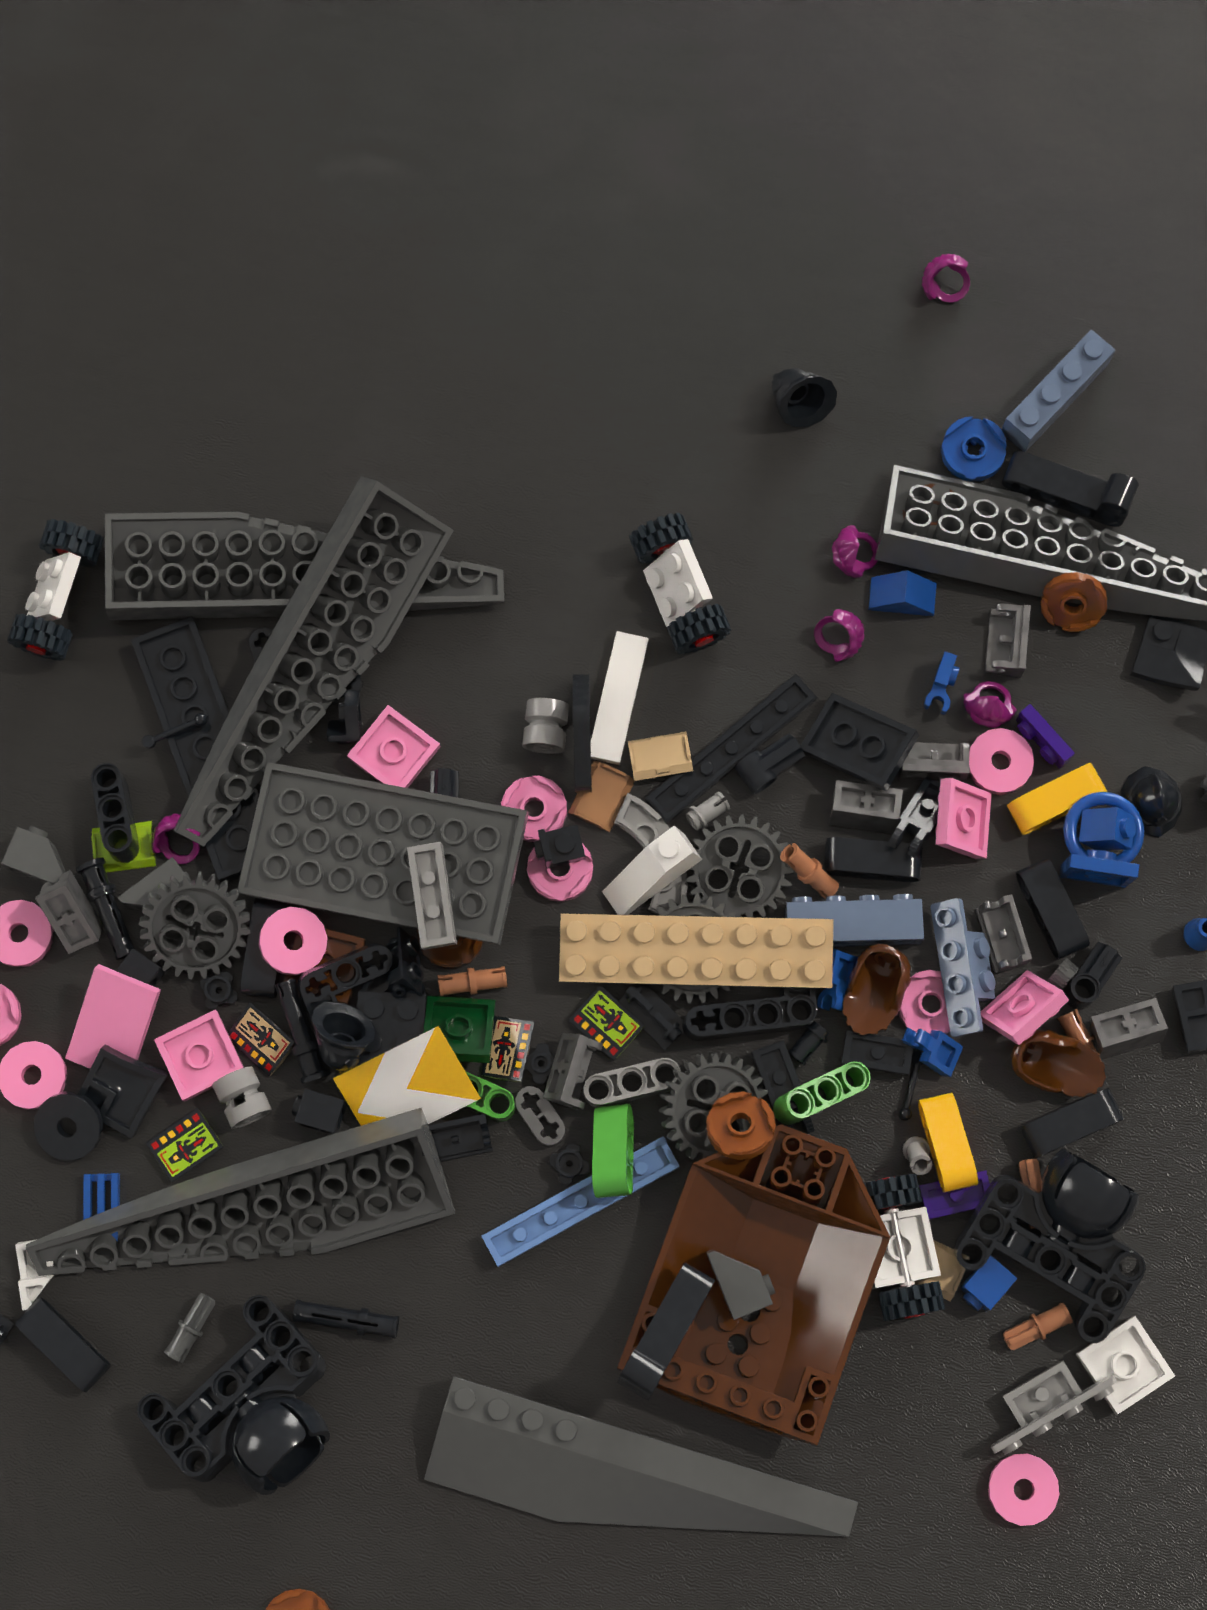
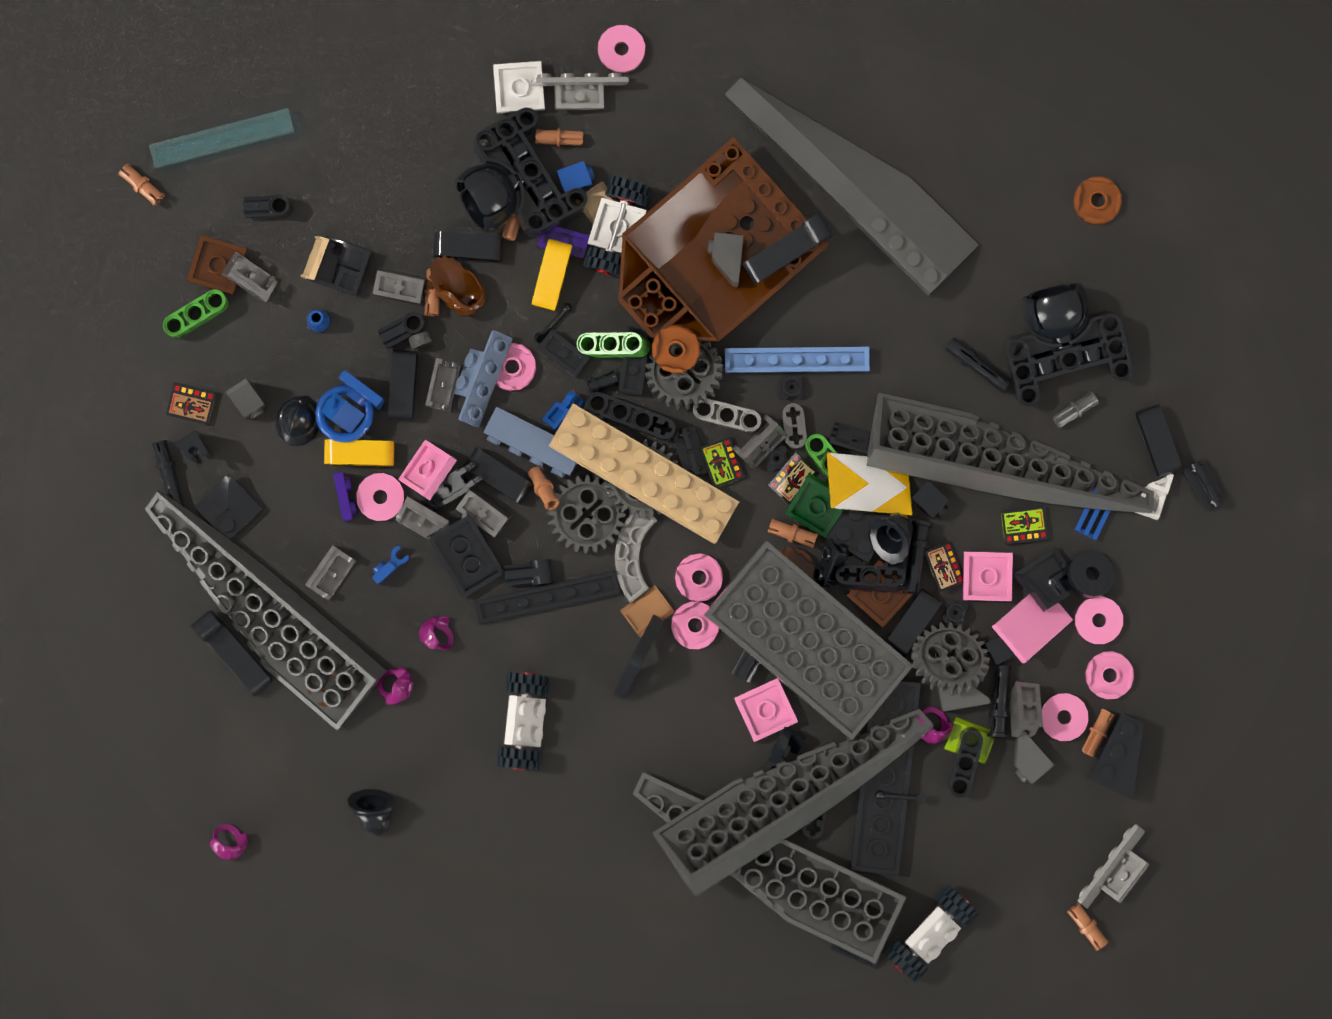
camera: 155 degrees left, 10 degrees up
(240, 1085) = (971, 542): light grey wheel -> none
(304, 924) = (899, 628): bright pink tile -> none
(431, 895) = (792, 592): light grey plate -> none
(546, 723) = (660, 673): light grey wheel -> none
(559, 846) = (693, 589): black bracket -> none
(613, 1151) = (761, 378): bright green beam -> none
(618, 697) = (602, 670): white tile -> none
(651, 871) = (643, 541): white slope -> none
(660, 756) = (596, 616): tan piece -> none
(706, 811) = (586, 563): light grey pin -> none
(876, 989) = (543, 391): reddish brown hair -> none
(902, 593) = (380, 640): blue slope -> none
(917, 1152) = (573, 280): light grey pin -> none
(938, 1049) = (525, 335): blue plate -> none
(973, 431) = (288, 722): blue plate -> none
(989, 709) = (371, 532): magenta piece -> none
(1023, 1007) = (458, 331): bright pink plate -> none
(1057, 390) = (200, 722): sand blue brick -> none
(1079, 587) = (282, 582): dark orange tile -> none

